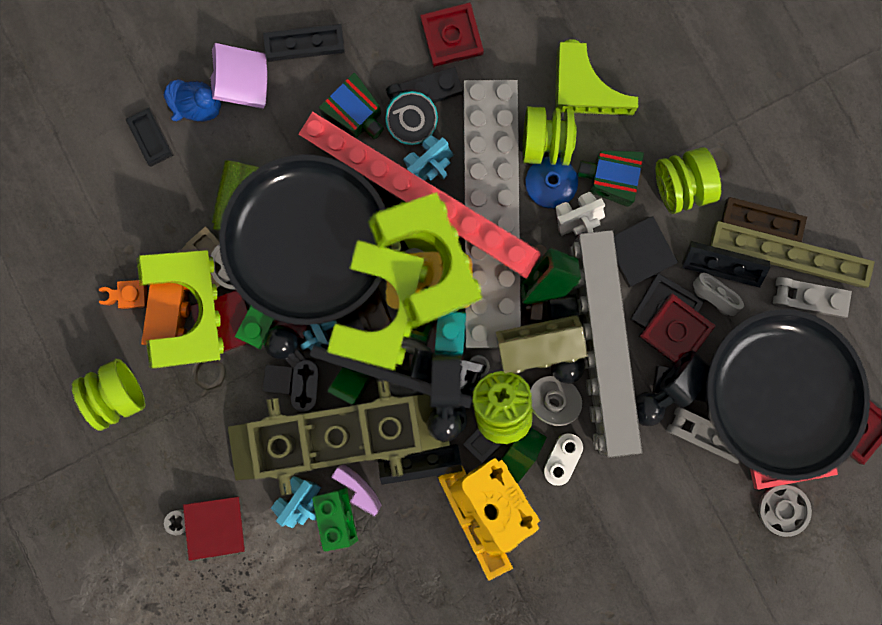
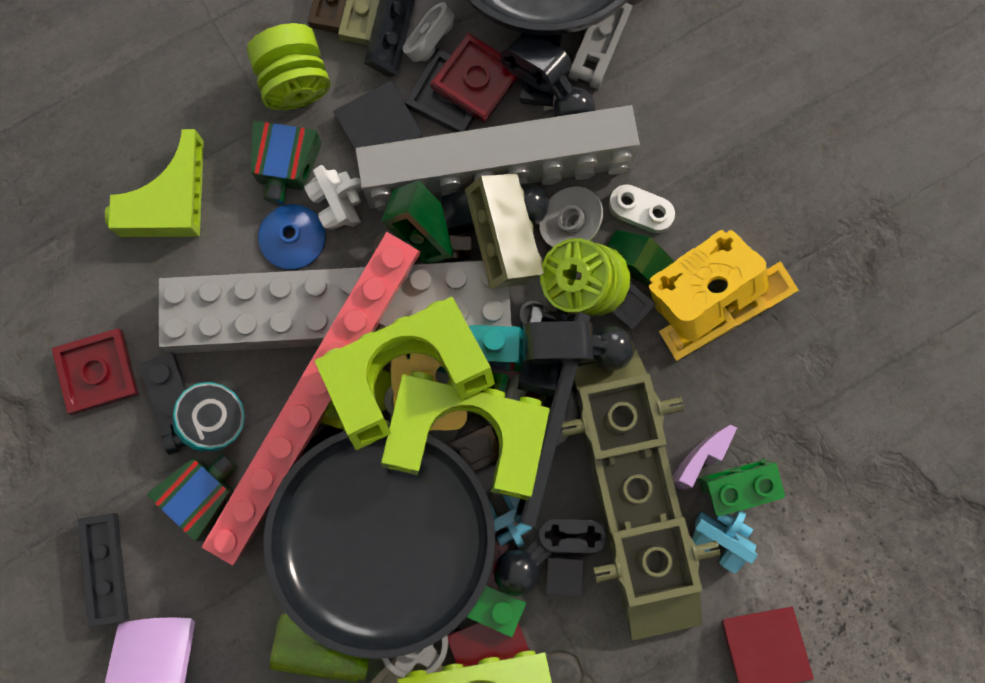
camera: 95 degrees left, 5 degrees down
(349, 385) = (569, 476): dark green slope -> none
(423, 464) = (659, 360): black plate -> none
(432, 161) = (268, 385): medium azure hips -> none
(548, 135) = (232, 237): lime wheel -> none

